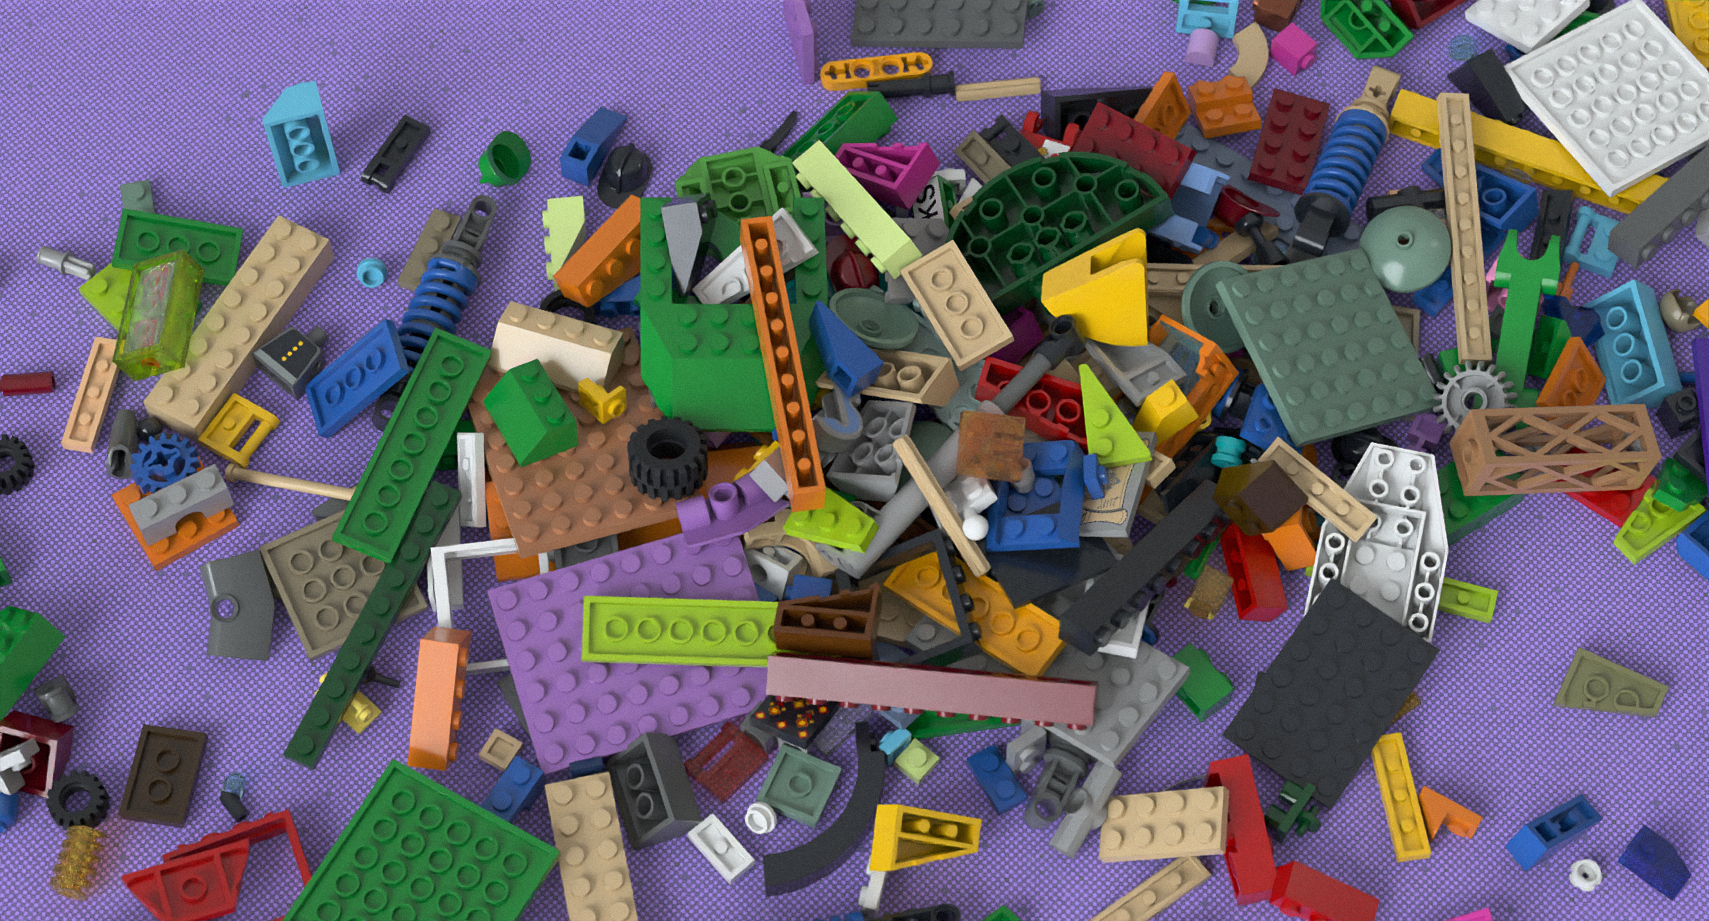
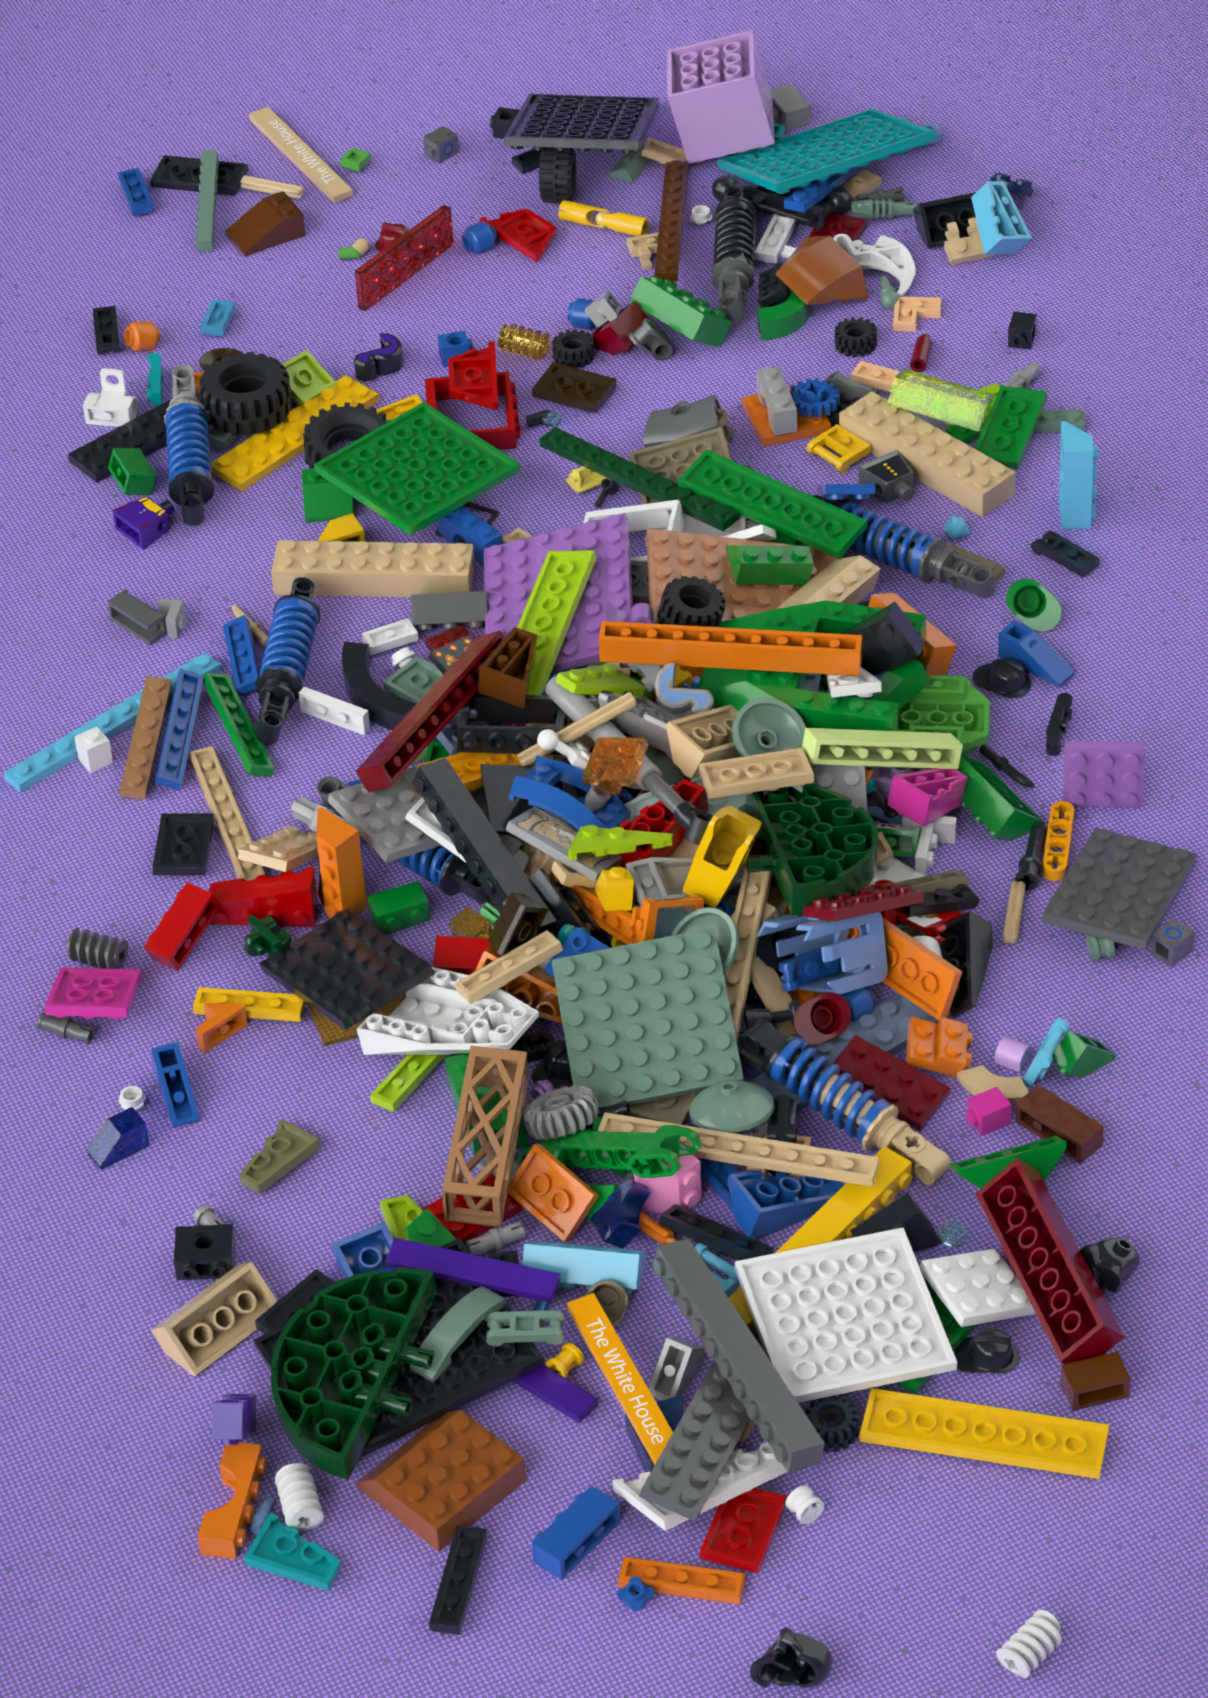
camera: 110 degrees right, 20 degrees down
(234, 473) = (784, 455): tan bar -> none
(438, 698) = (567, 499): orange wedge -> none
(566, 230) = (959, 628): yellowish green slope -> none
(586, 767) = (479, 576): dark blue tile -> none
(599, 403) = (768, 596): yellow bracket -> none
(698, 102) = (1058, 723): none -> black plate
(844, 355) = (729, 691): blue slope -> none
(918, 836) = (339, 717): yellow wedge -> none
(1095, 476) = (567, 821): blue plate -> none
(1205, 733) = (340, 865): none -> orange slope

